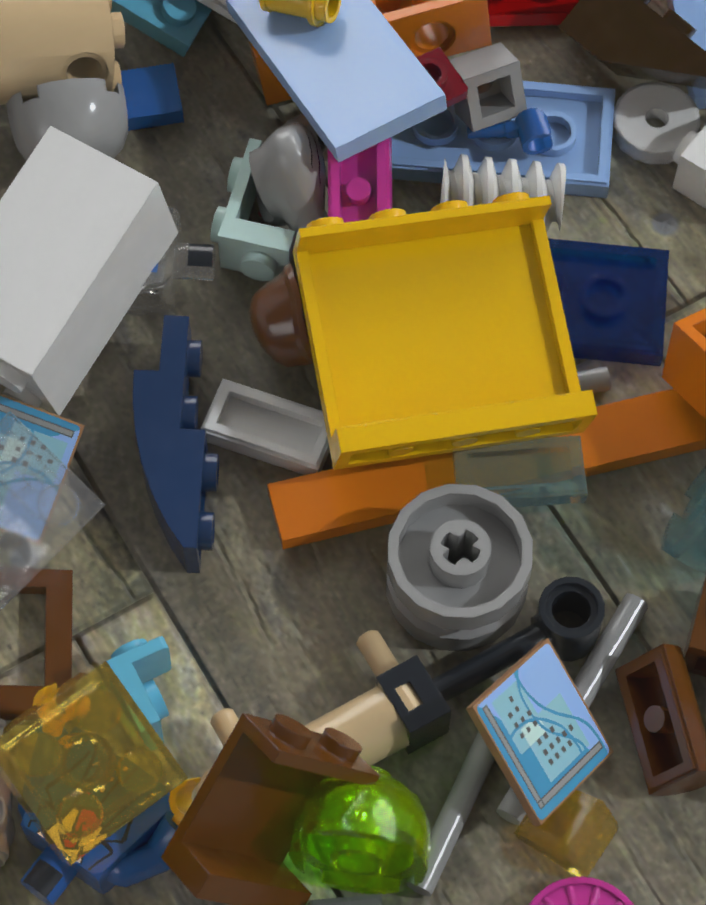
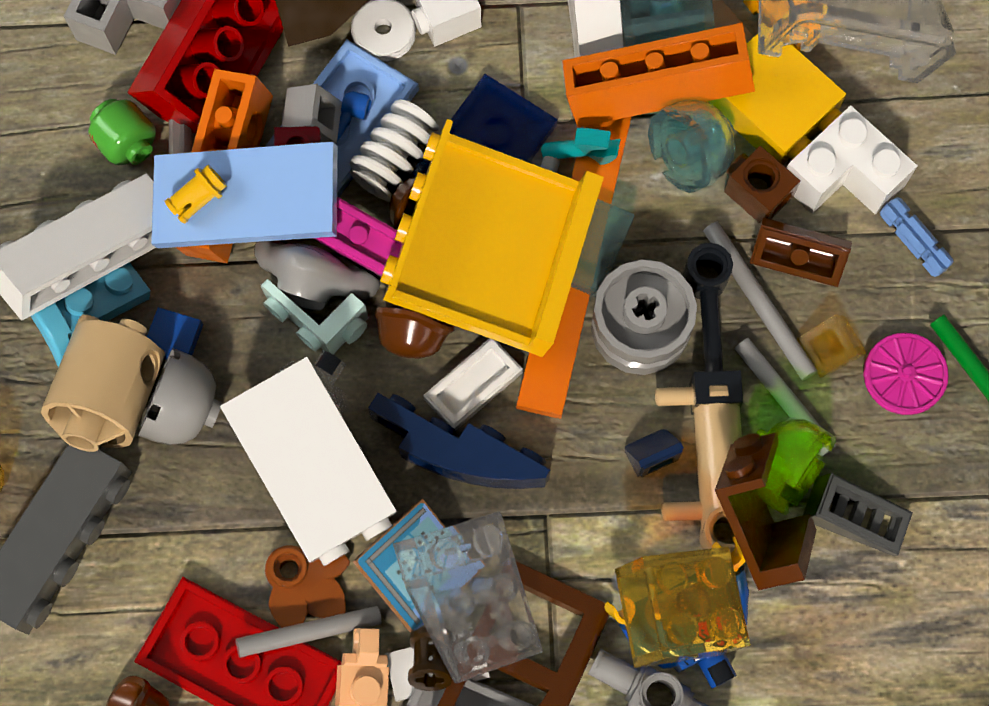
camera: 60 degrees left, 10 degrees up
(136, 666) = (612, 558): medium azure bracket -> none
(293, 672) = (653, 452): none -> dark blue slope
(540, 731) = (779, 326): piece -> none
(643, 393) = (587, 142): none -> teal bar

